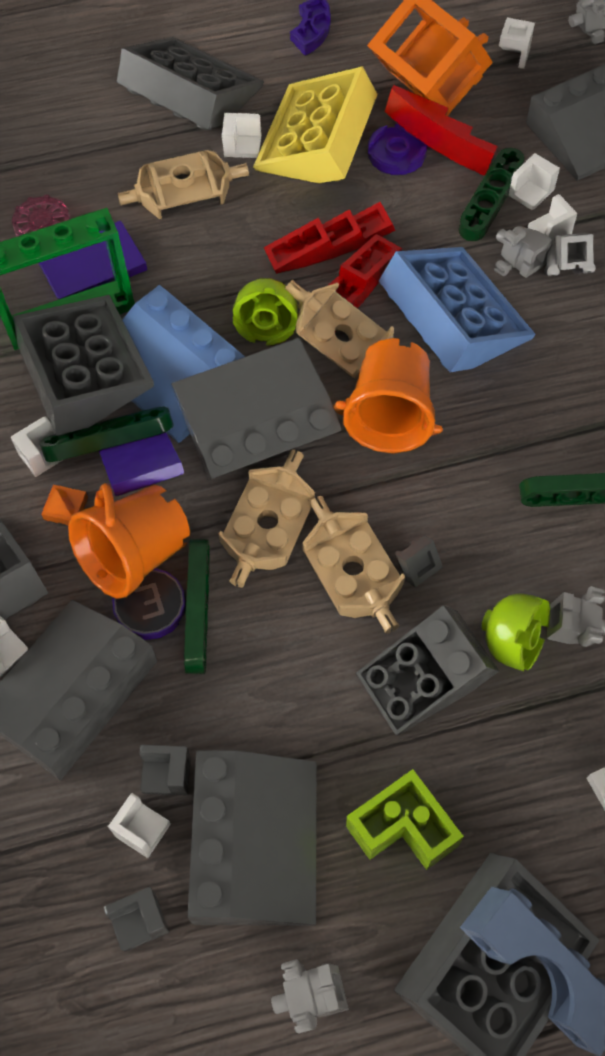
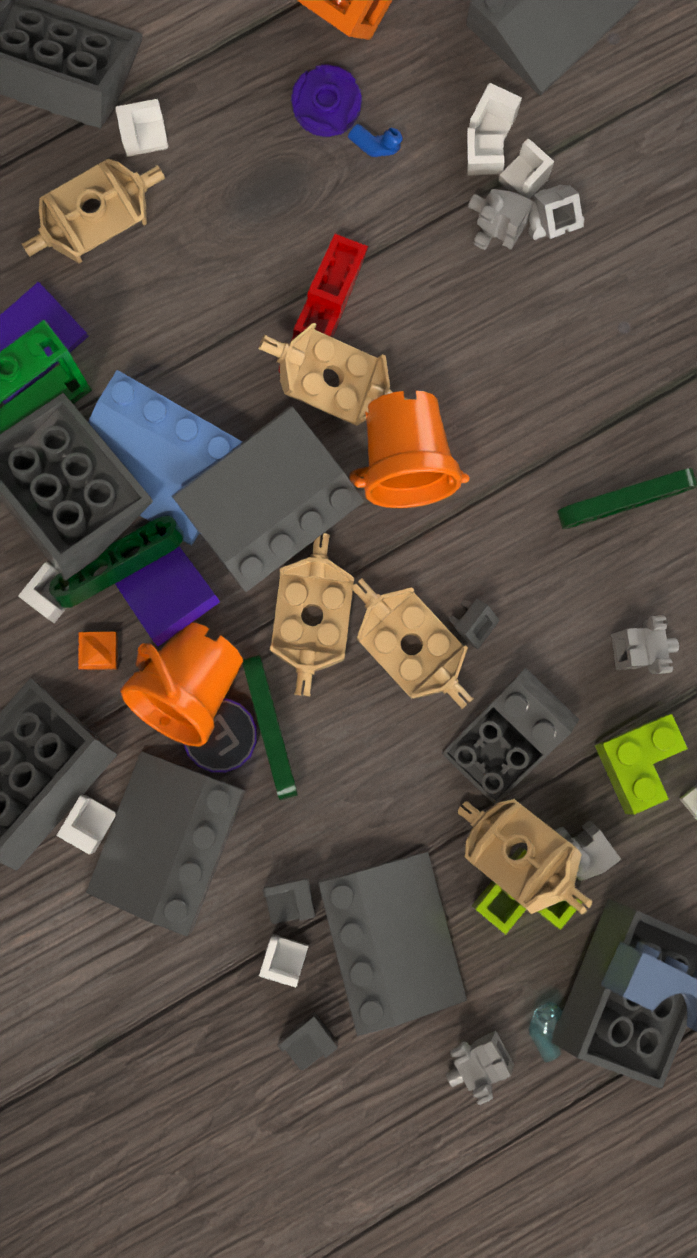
camera: 20 degrees left, 20 degrees up
(265, 311) = (241, 371): lime cylinder -> none
(318, 127) = (227, 94): light yellow slope -> none
(325, 241) = (282, 250): red slope -> none
(387, 976) = (542, 1028): none -> clear light blue arm
(420, 794) = (542, 875): none -> tan plate
(430, 185) = (376, 145): none -> blue arm
(442, 133) = (358, 65): red slope -> none
(454, 306) = (443, 307): medium blue slope -> none
(477, 801) = (595, 851): none -> light grey piece
(488, 192) = (449, 140): dark green beam -> none
(515, 629) = (587, 678): lime cylinder -> none
(518, 206) = (484, 153): none -> white panel
(545, 719) = (631, 760): none -> lime brick

